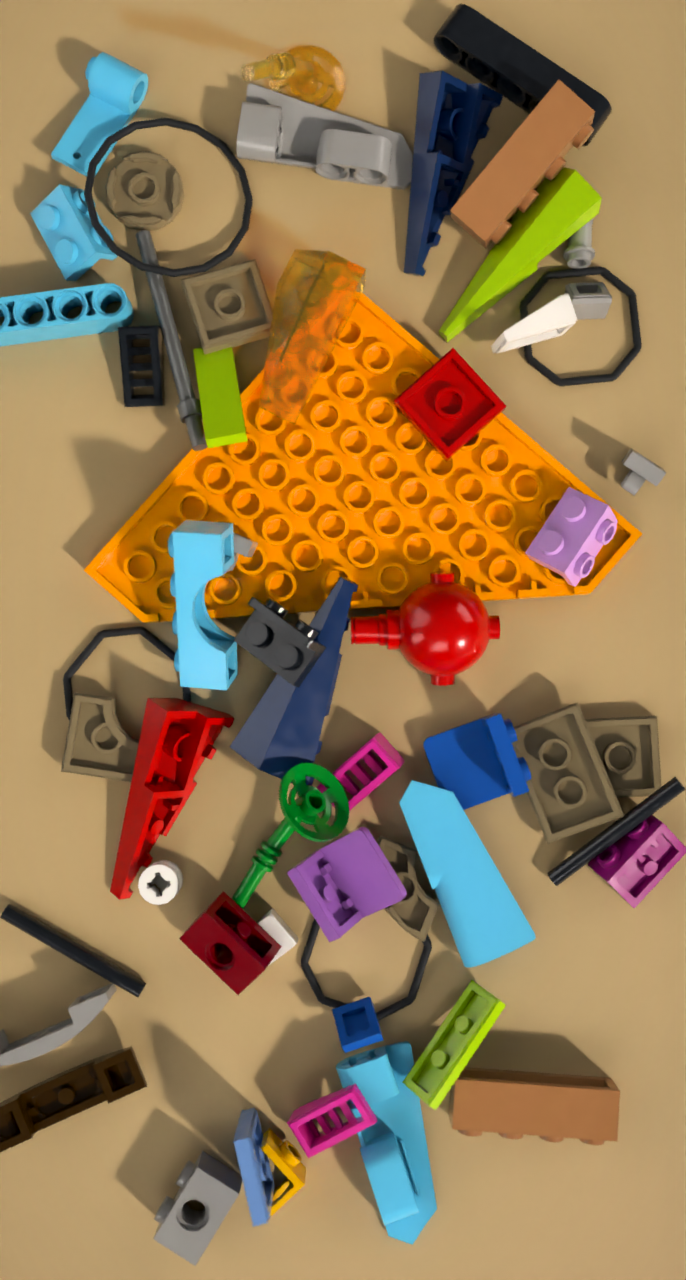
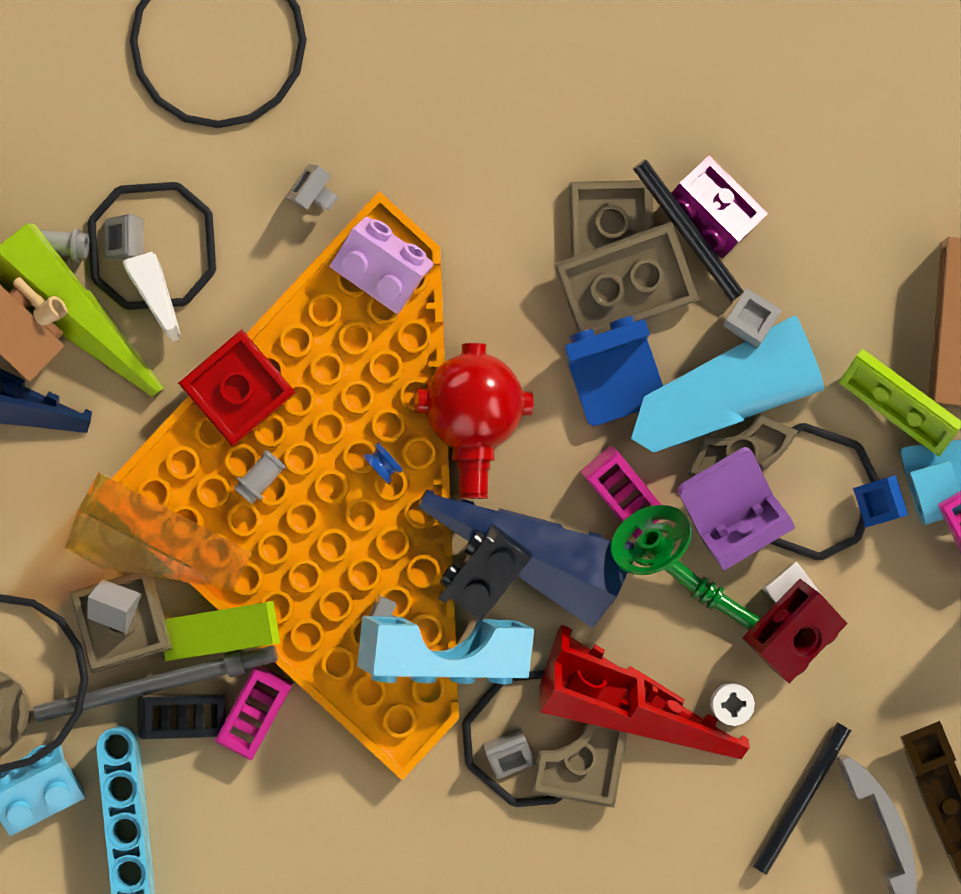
camera: 95 degrees left, 0 degrees up
(112, 670) = (509, 754): none -> light grey slope
(176, 446) = (234, 742): none -> dark pink slope
(242, 295) = (112, 605): none -> light grey slope
(365, 426) = (259, 477): none -> light grey pin
(381, 542) = (383, 463): none -> blue bush
(519, 222) = (45, 311): none -> tan hand
(532, 895) = (752, 318): none -> light grey tile

